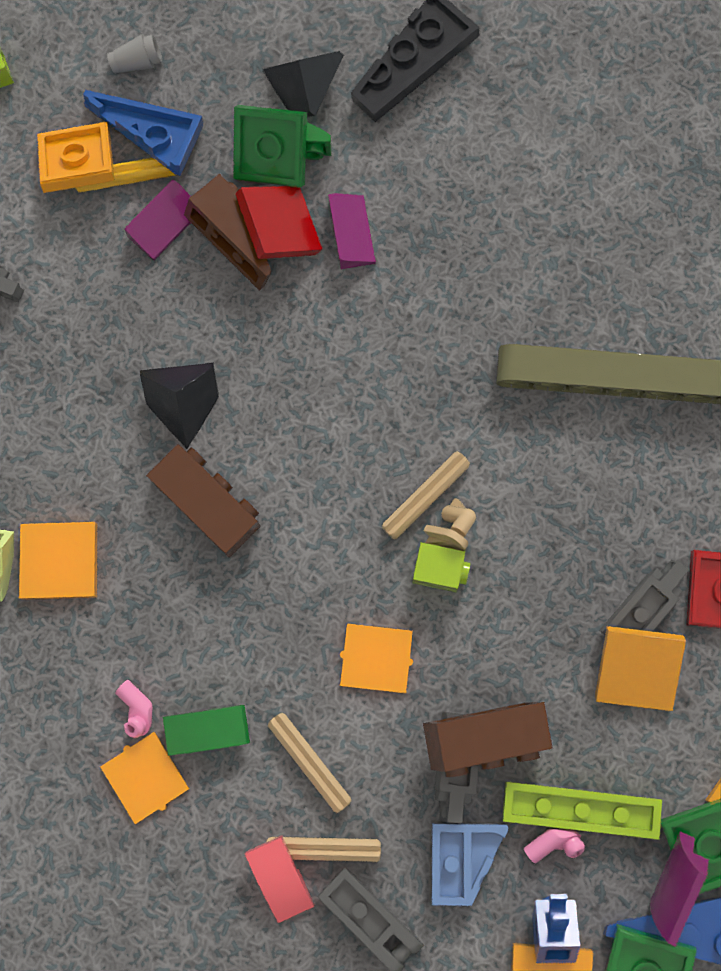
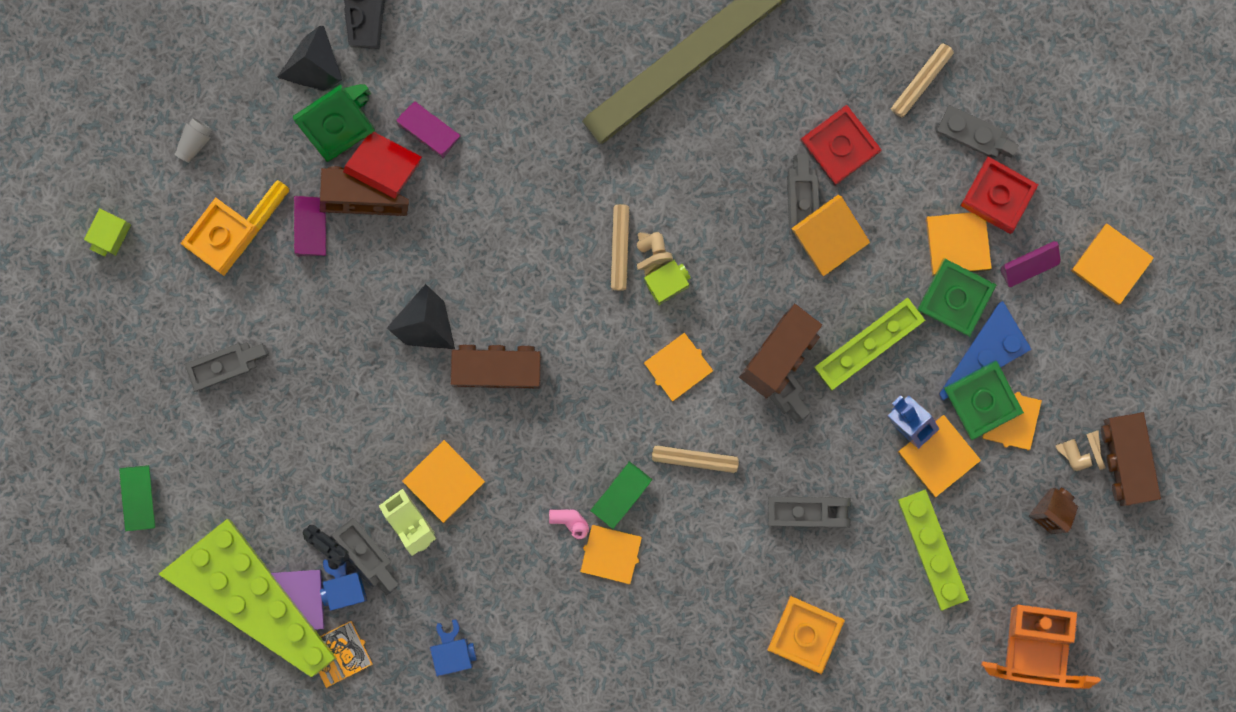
camera: 45 degrees left, 5 degrees up
(157, 130) = (253, 174): blue wing -> none
(279, 879) = (738, 536): coral slope -> none
(333, 849) = (747, 498): tan axle -> none
(462, 859) = (828, 432): medium blue wing -> none
(553, 840) = (869, 374): bright pink arm -> none
(678, 888) = (956, 336): magenta slope -> none

